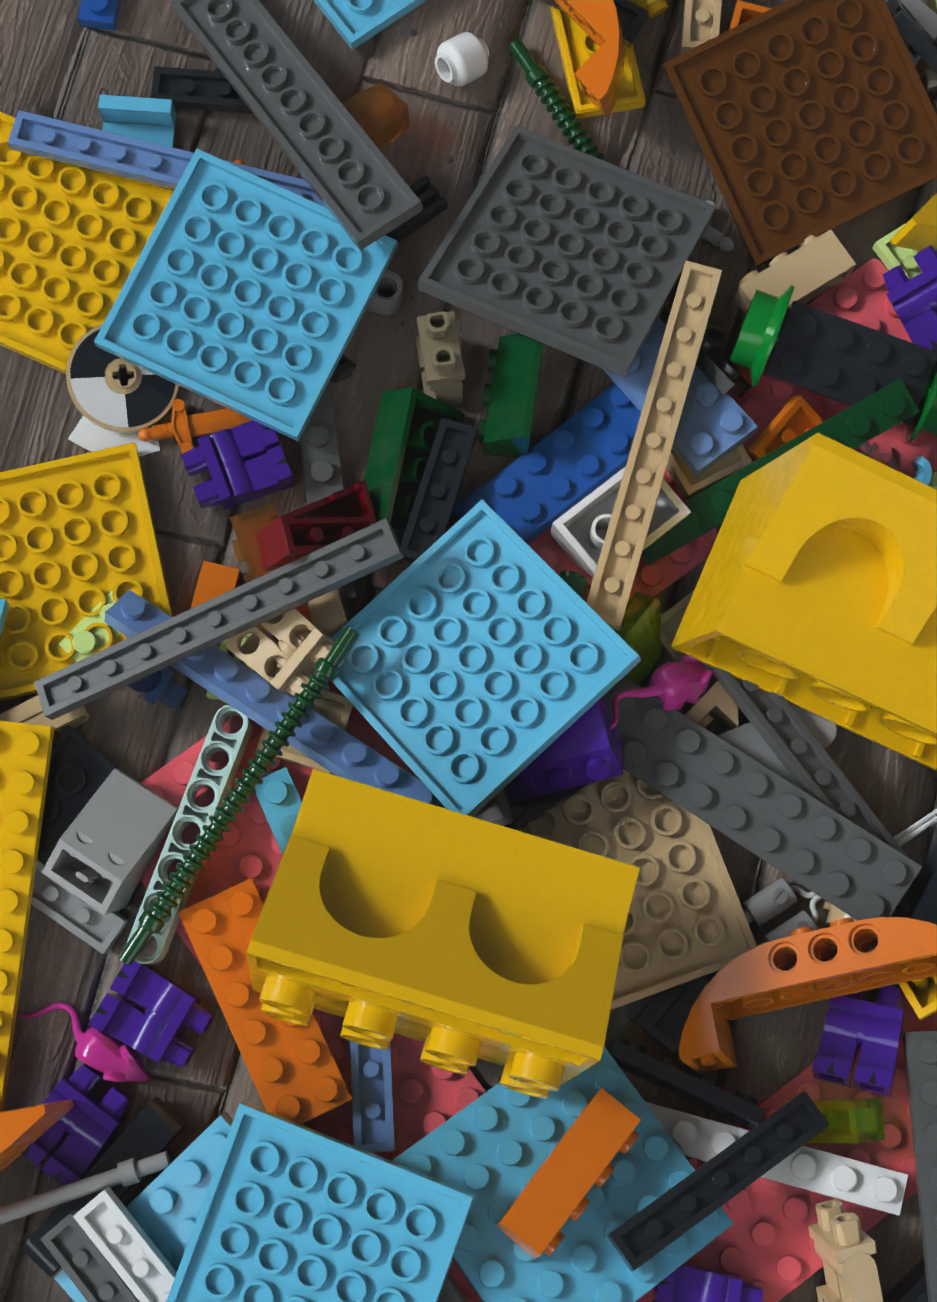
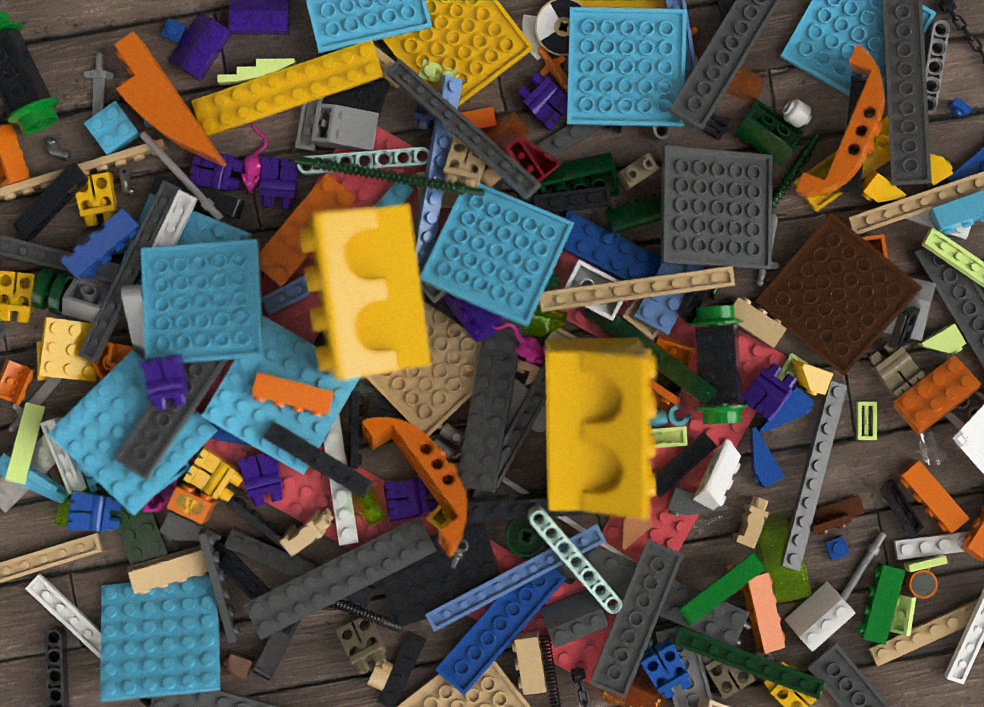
camera: 60 degrees right, 10 degrees up
(474, 118) = (769, 132): none -> dark green slope

